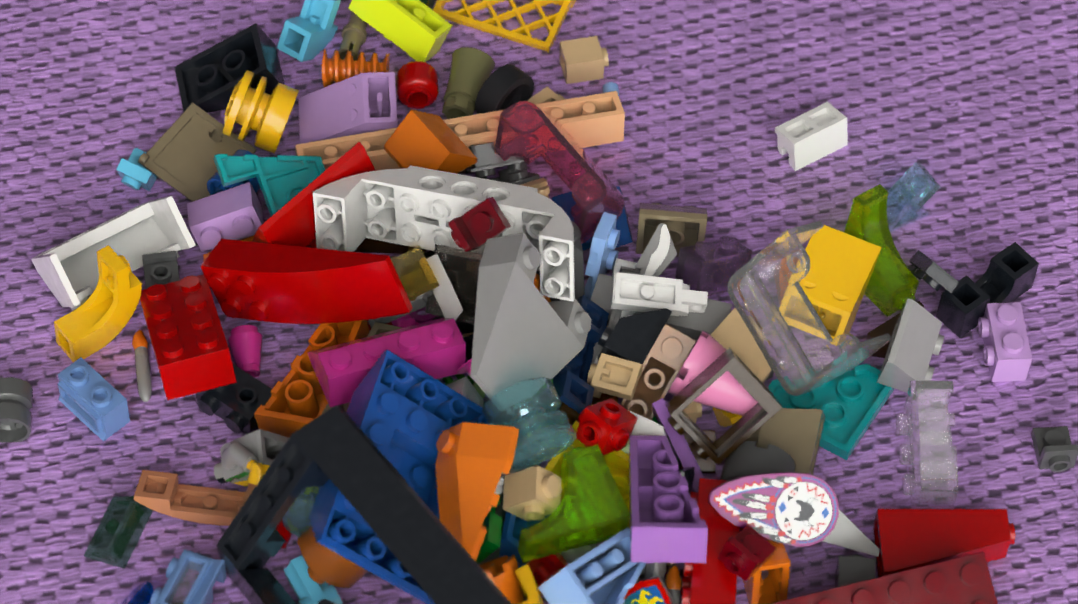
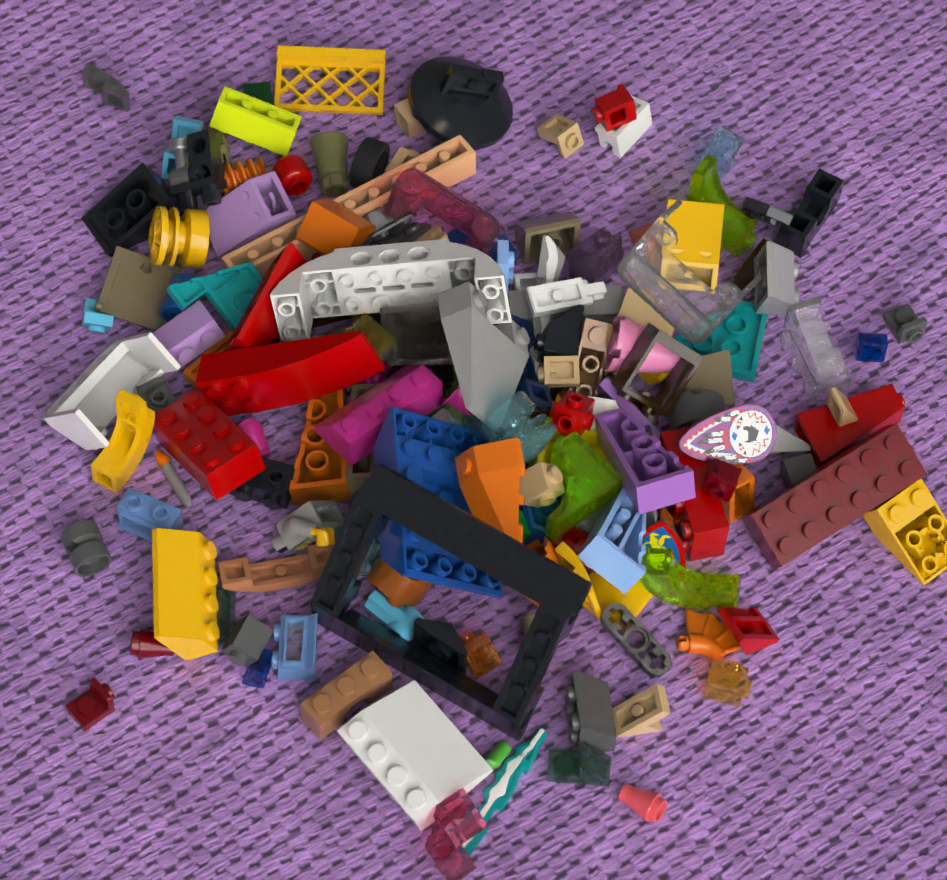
camera: 20 degrees left, 5 degrees up
(30, 537) = (145, 645): none -> dark red cone
(87, 490) = (185, 592): none -> yellow slope
(134, 567) = (247, 641): none -> dark grey brick
(311, 45) = (203, 174): none -> black hips
(444, 292) = (404, 346): white sticker -> none
(478, 225) = (416, 283): dark red bracket -> none
(636, 56) = (460, 99): none -> black bracket
(739, 126) = (563, 133): none -> tan bracket
(802, 111) = (614, 108): none -> red brick
(931, 517) = (840, 407): none -> tan slope
(1001, 461) = (871, 347): none -> clear blue brick
(1005, 342) = (839, 250): lavender brick -> none

